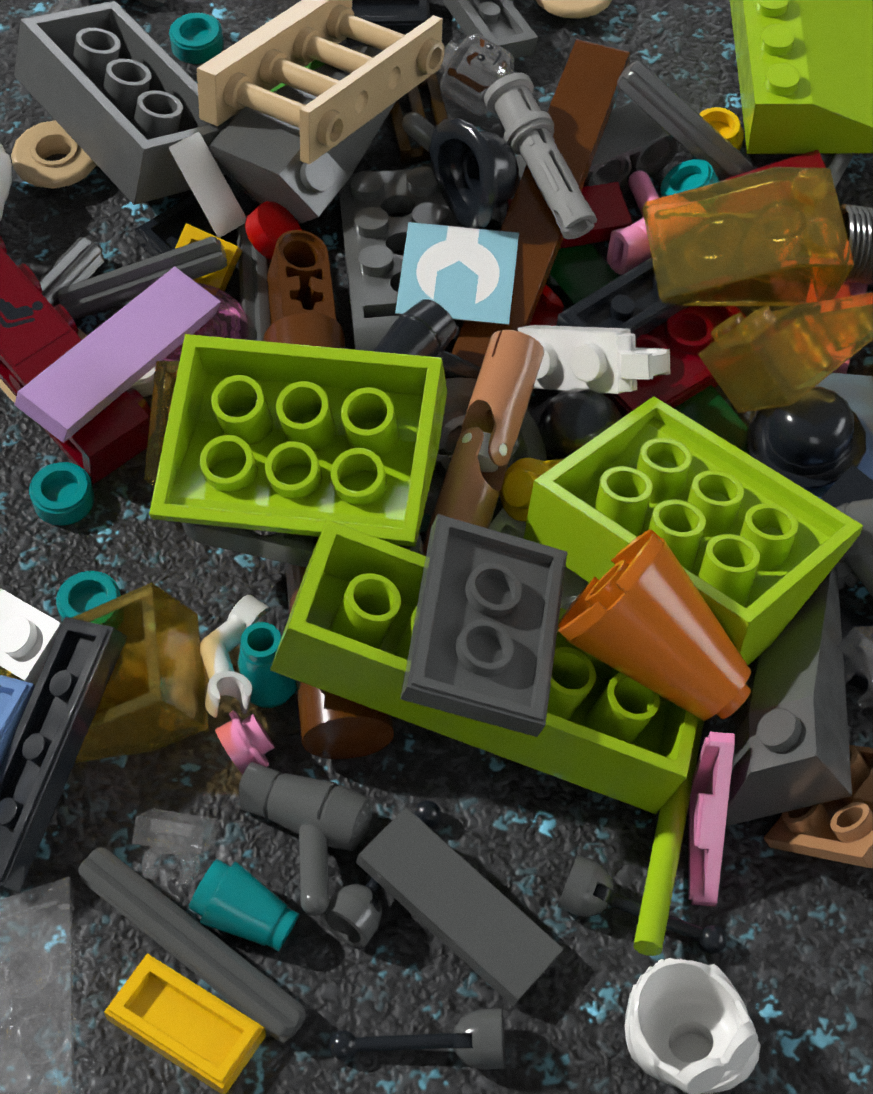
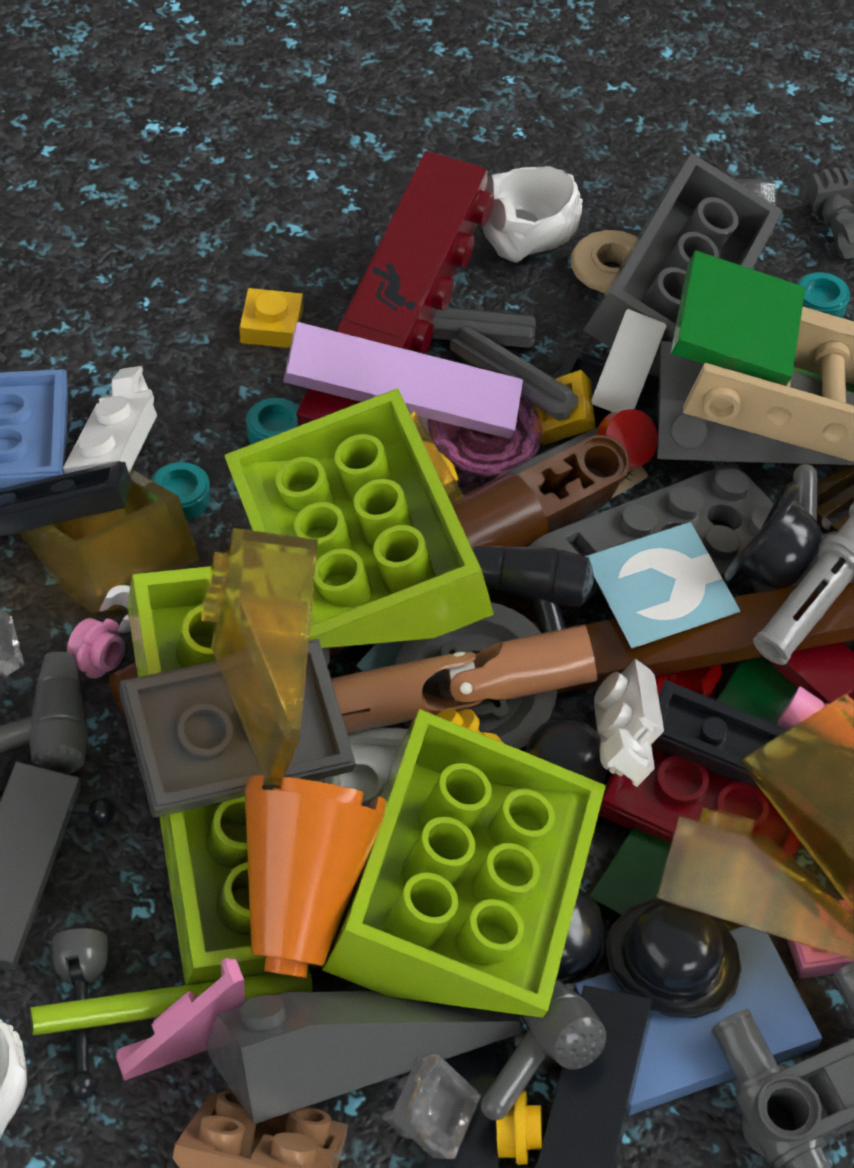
camera: 60 degrees right, 5 degrees down
(260, 68) = (738, 319): none -> green tile
(475, 536) = (261, 637): none -> clear yellow slope

